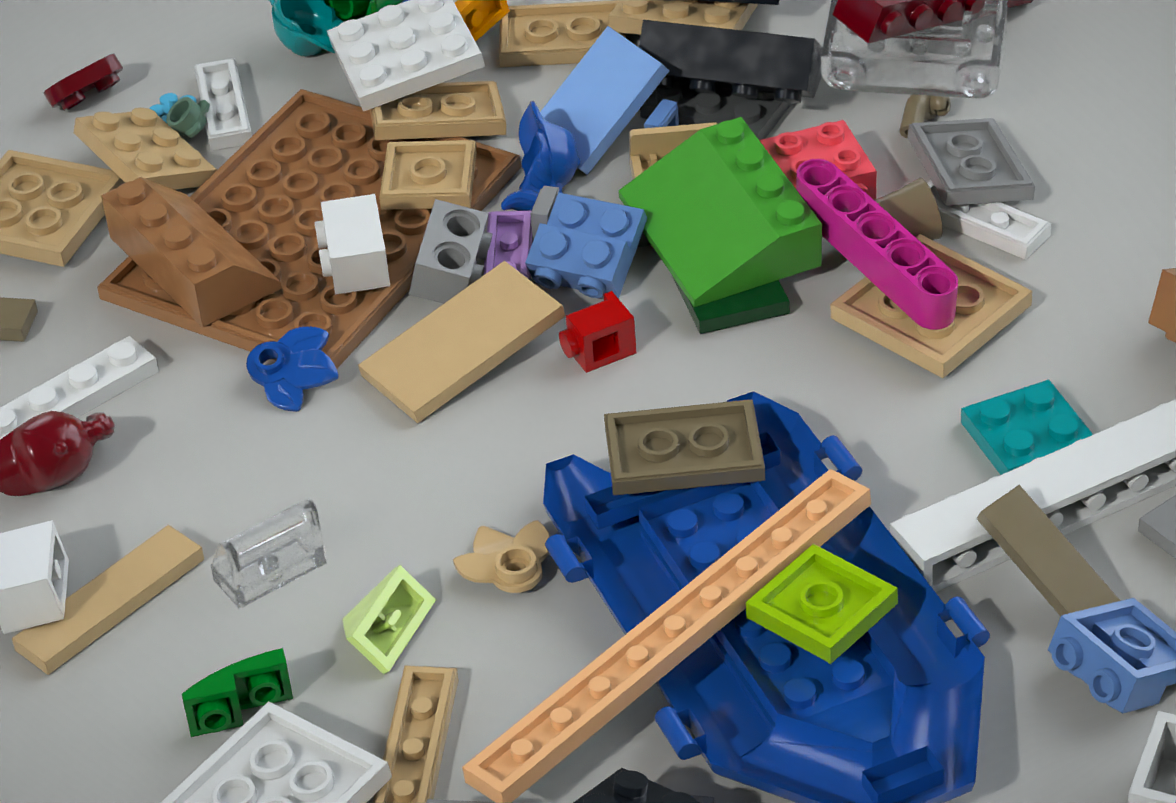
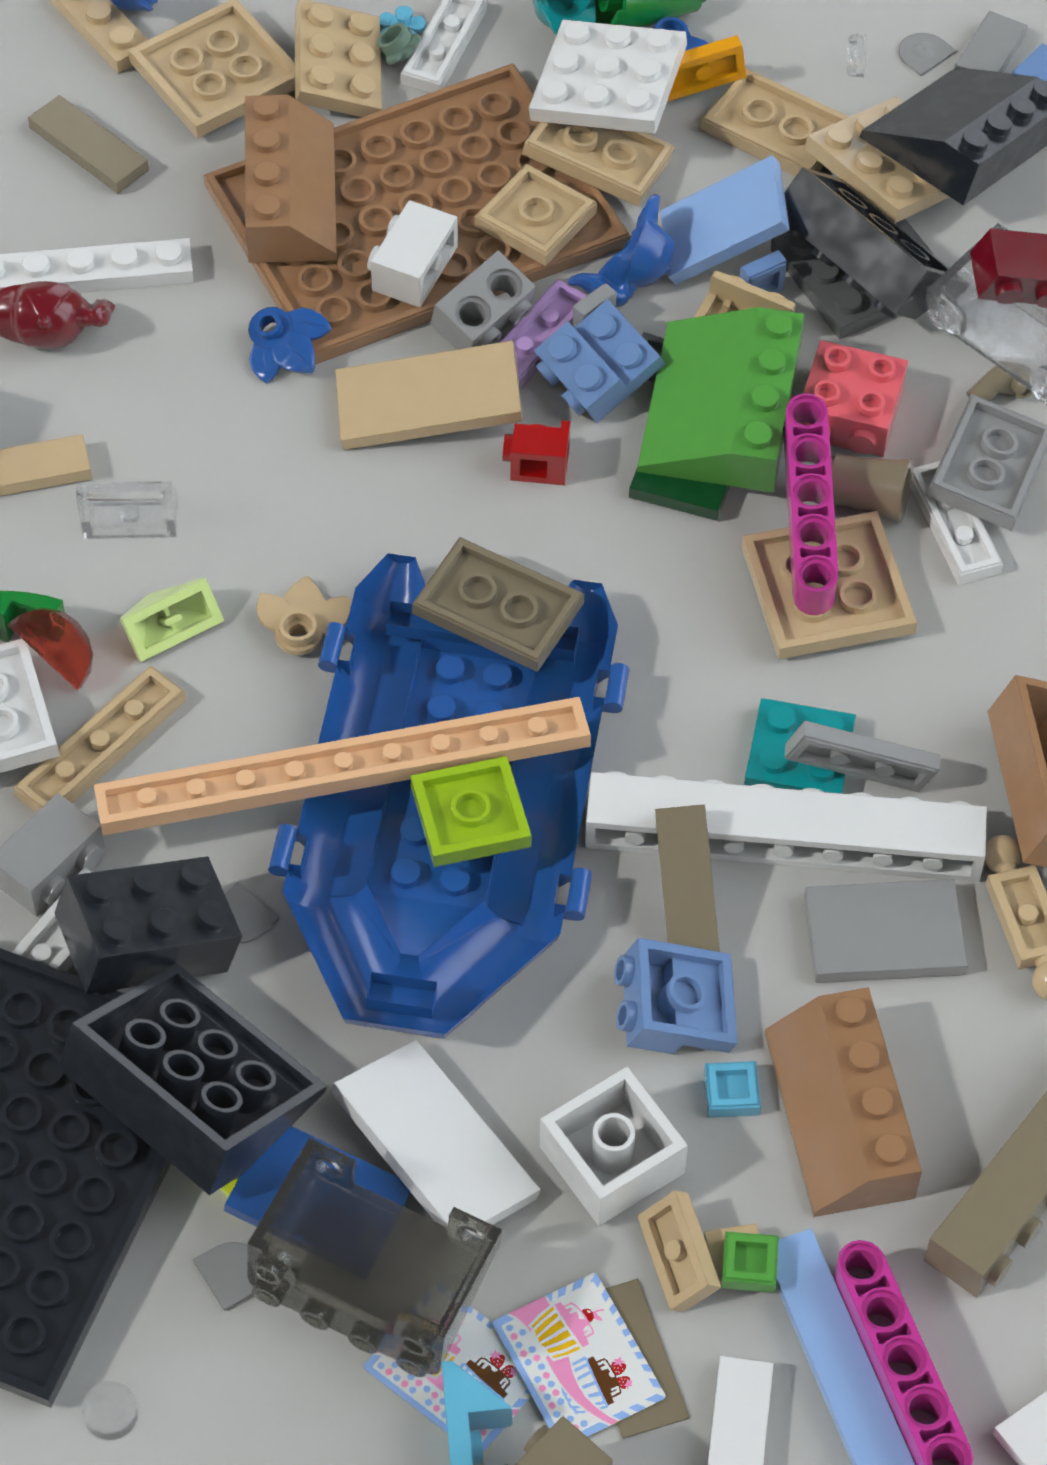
camera: 30 degrees right, 15 degrees up
(305, 685) = (58, 641): none -> clear red tile
(1095, 394) = (862, 756): none -> light grey tile

